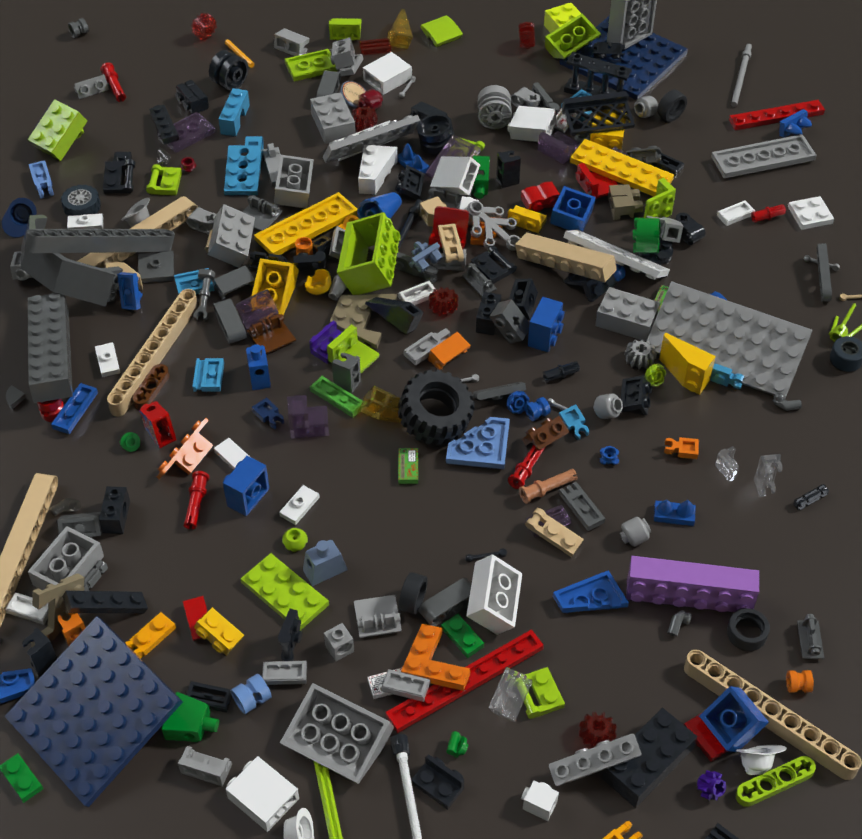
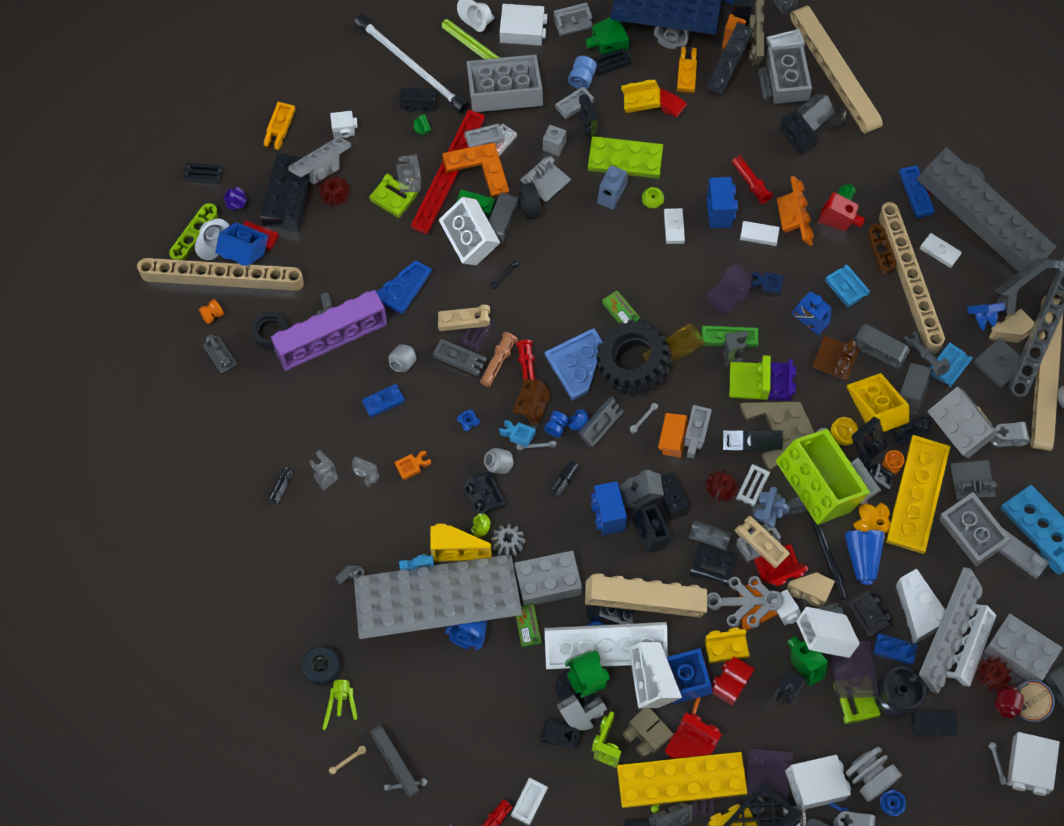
camera: 145 degrees right, 15 degrees up
(257, 308) = (866, 366): bracket -> none
(601, 206) = (652, 676): none -> white wedge

